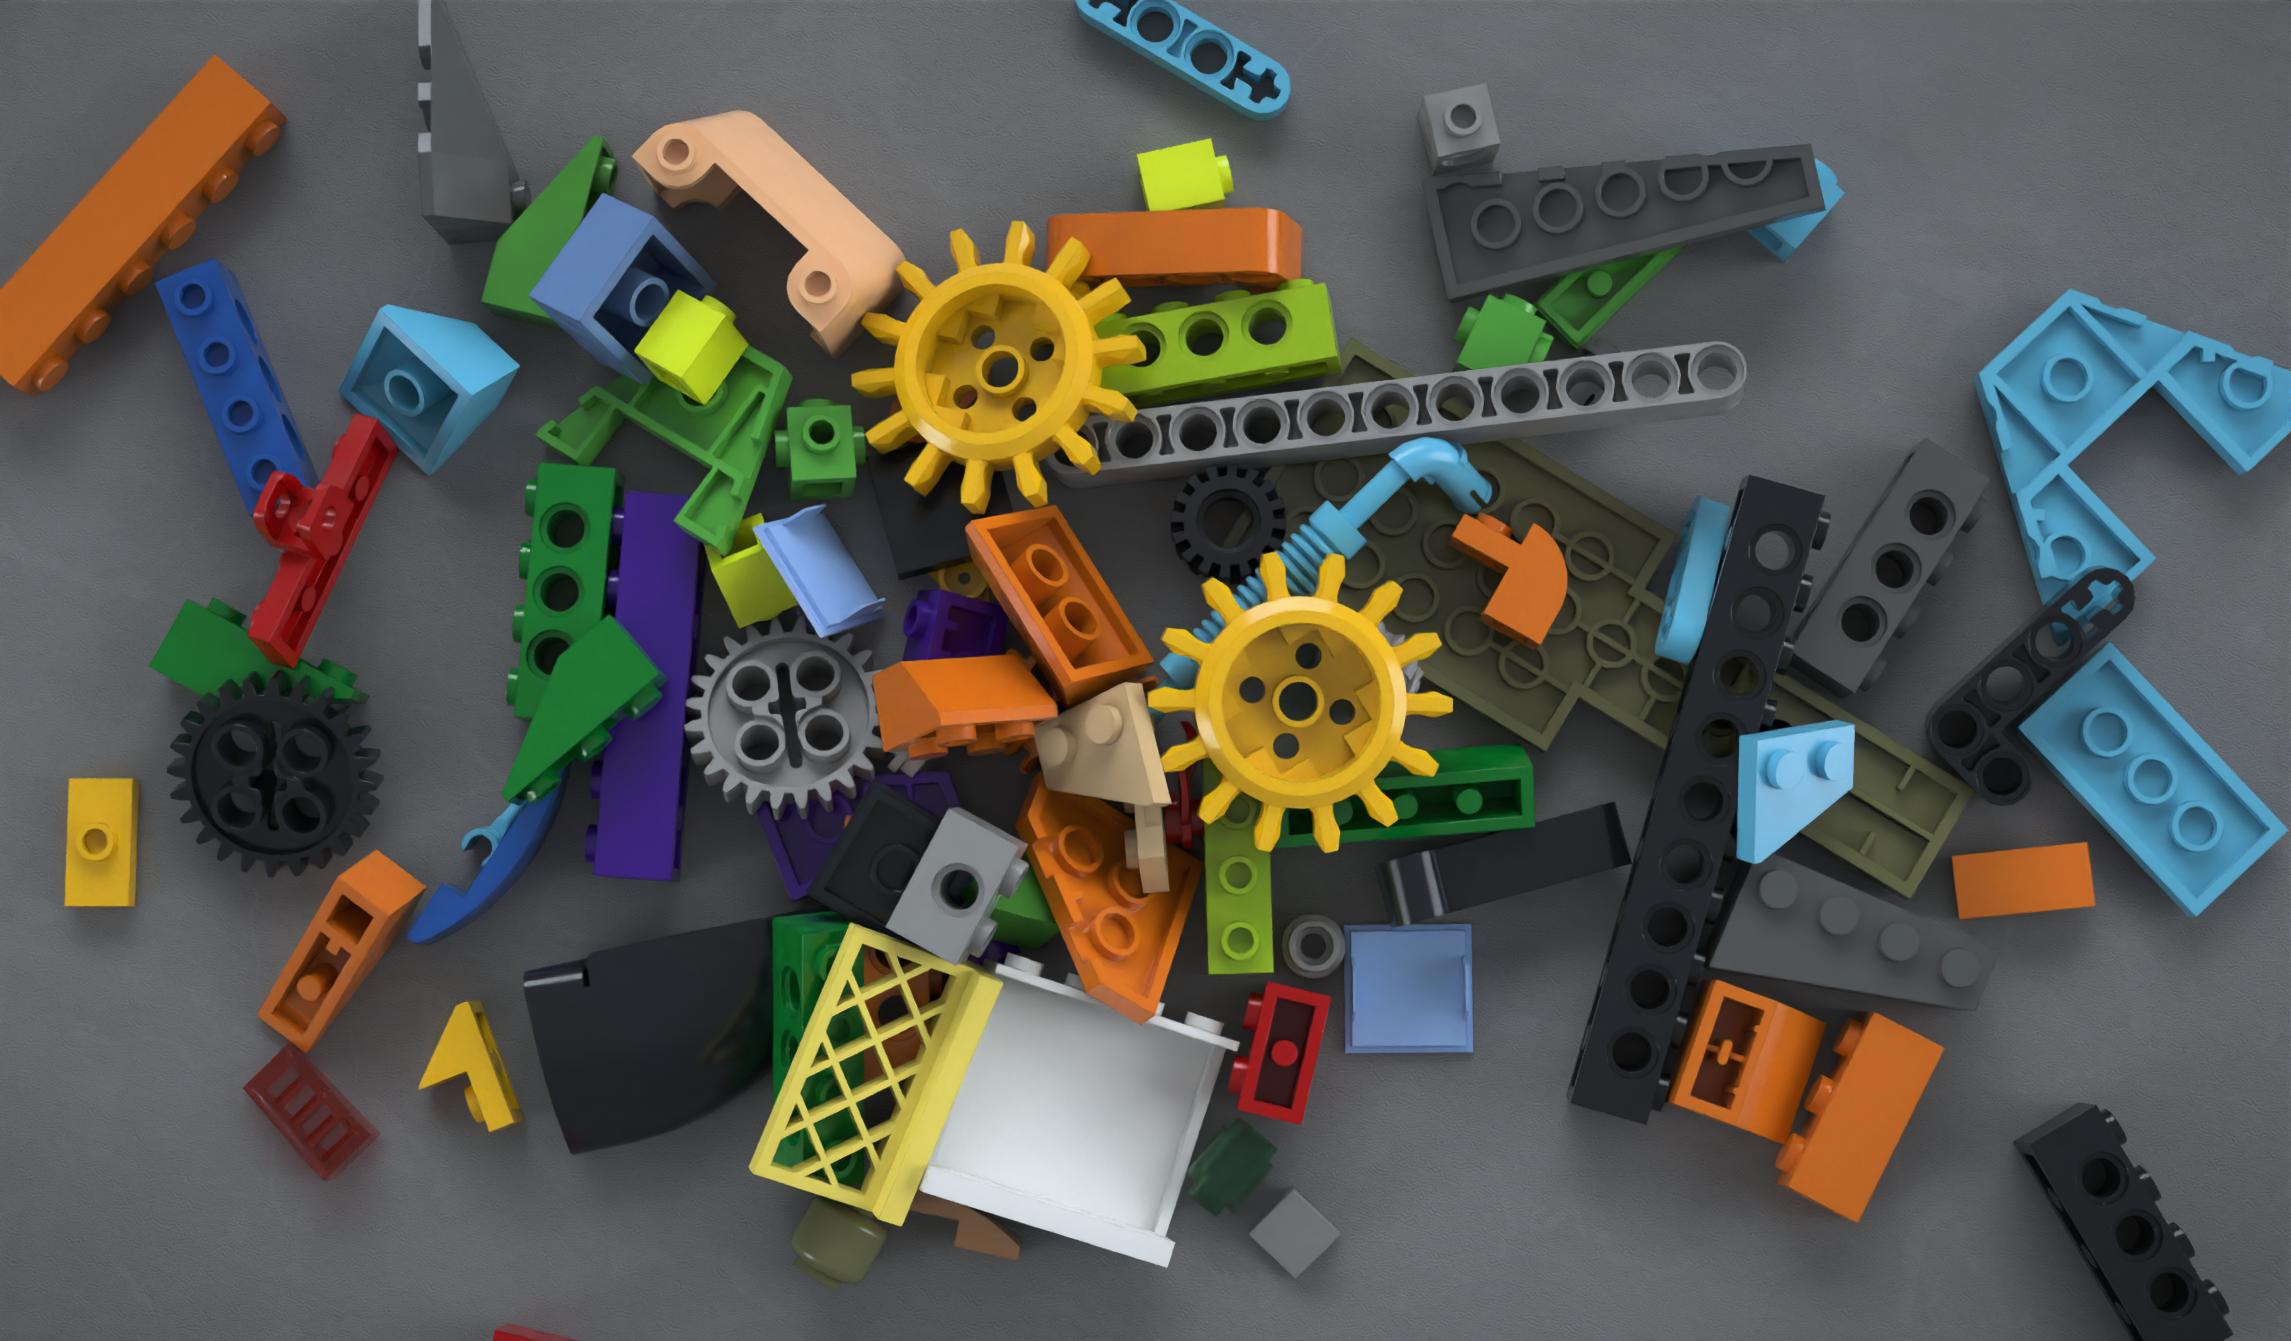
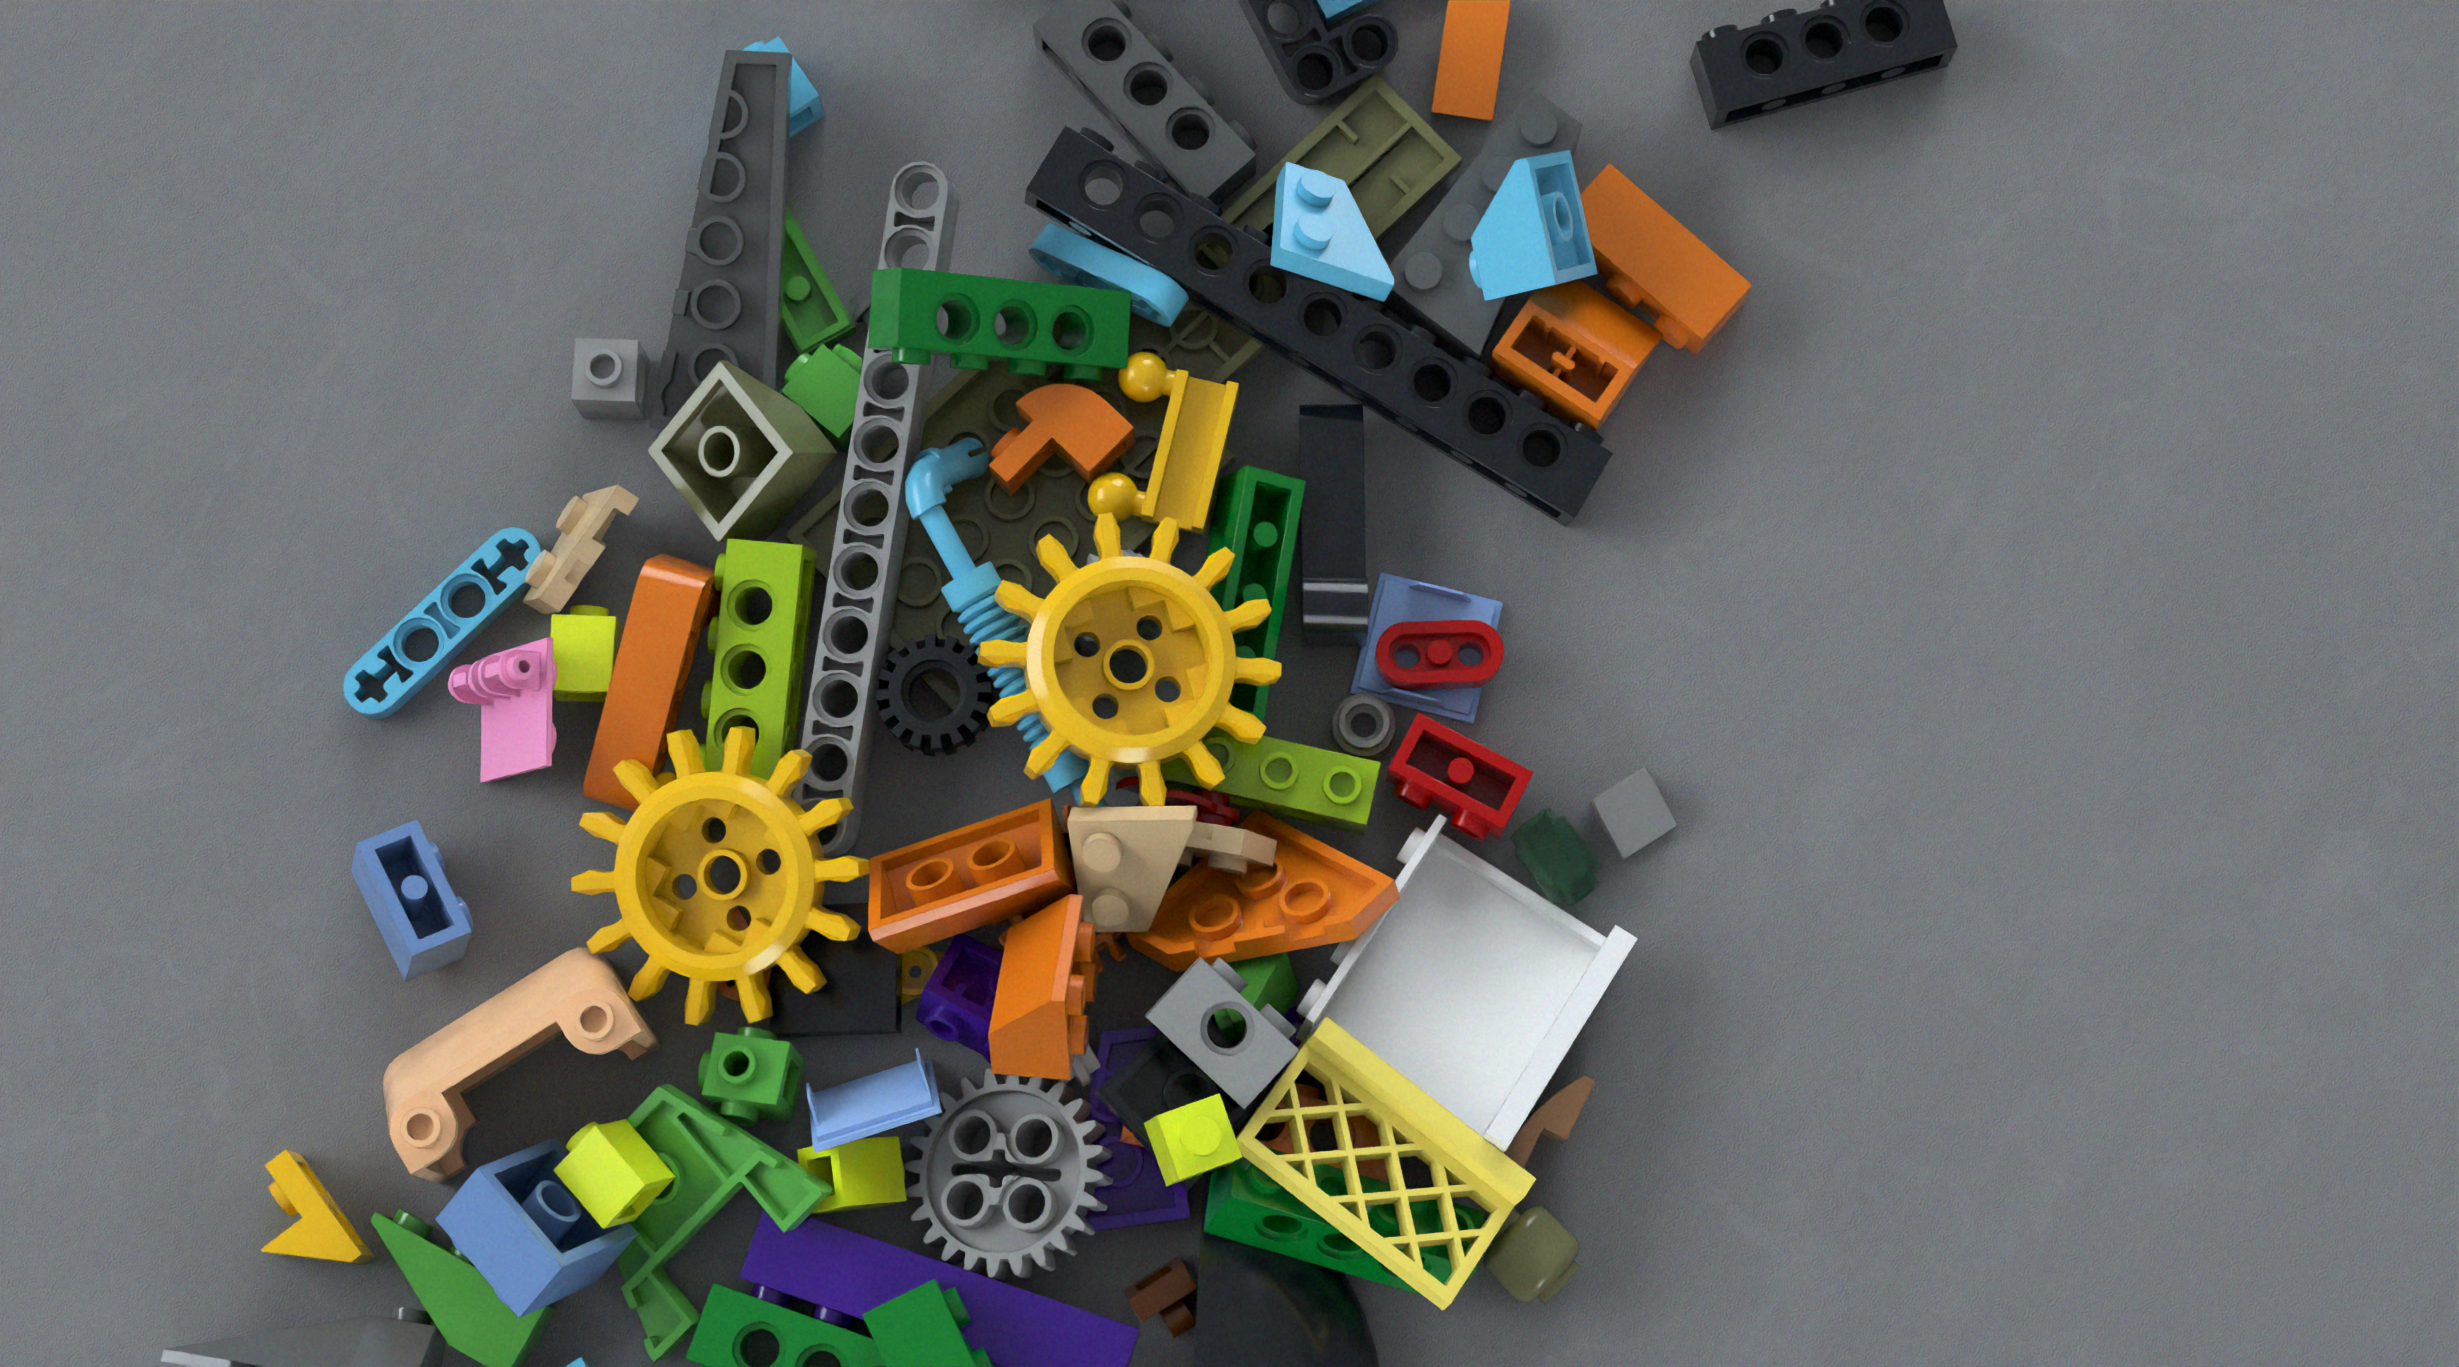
camera: 75 degrees left, 5 degrees down
(583, 97) = (324, 1228): none -> yellow slope
(713, 894) = (1162, 1293): none -> reddish brown tile
(845, 885) = (1192, 1139): none -> neon yellow brick
(905, 86) = (412, 899): none -> medium blue brick
(1126, 128) = (515, 707): none -> bright pink hinge
(1279, 144) = (583, 525): none -> tan wing
(1401, 1001) = (1437, 653): none -> red plate
(1414, 273) = (741, 454): none -> olive slope
(1533, 703) = (1187, 451): none -> yellow gear
(1597, 389) = (1090, 318): none -> green brick
(1846, 990) = (1532, 230): none -> medium azure slope

